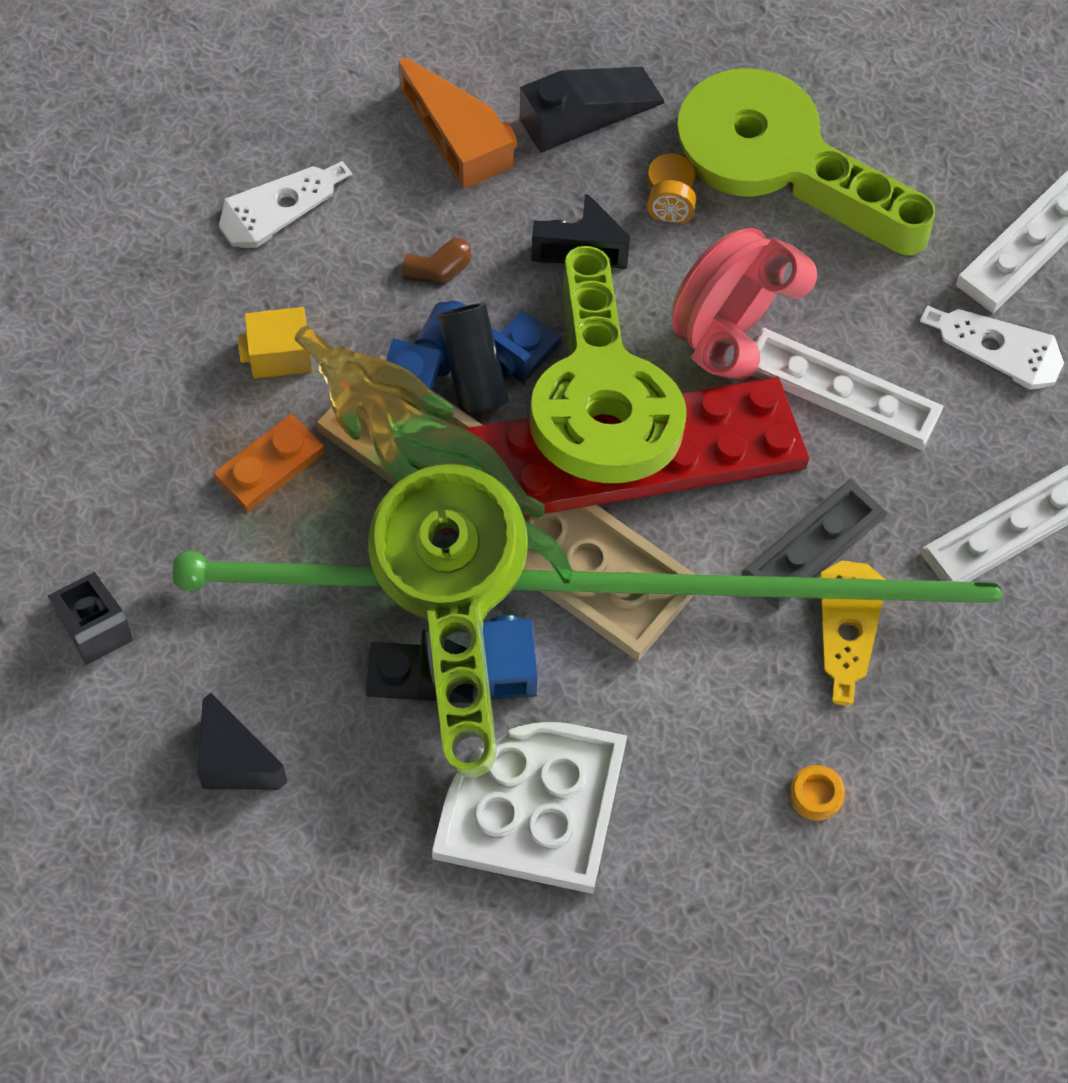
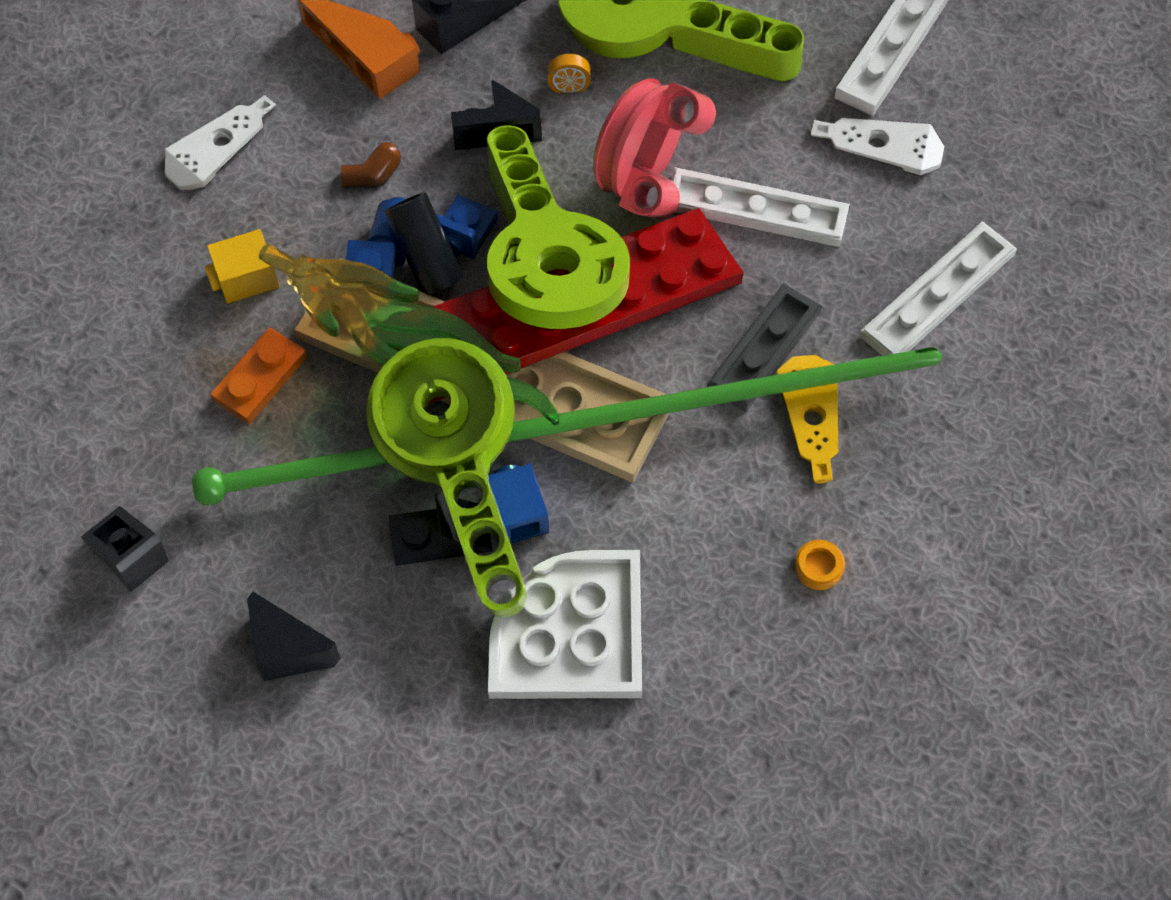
camera: 10 degrees left, 0 degrees up
(671, 167) = (559, 44): light orange tile -> none

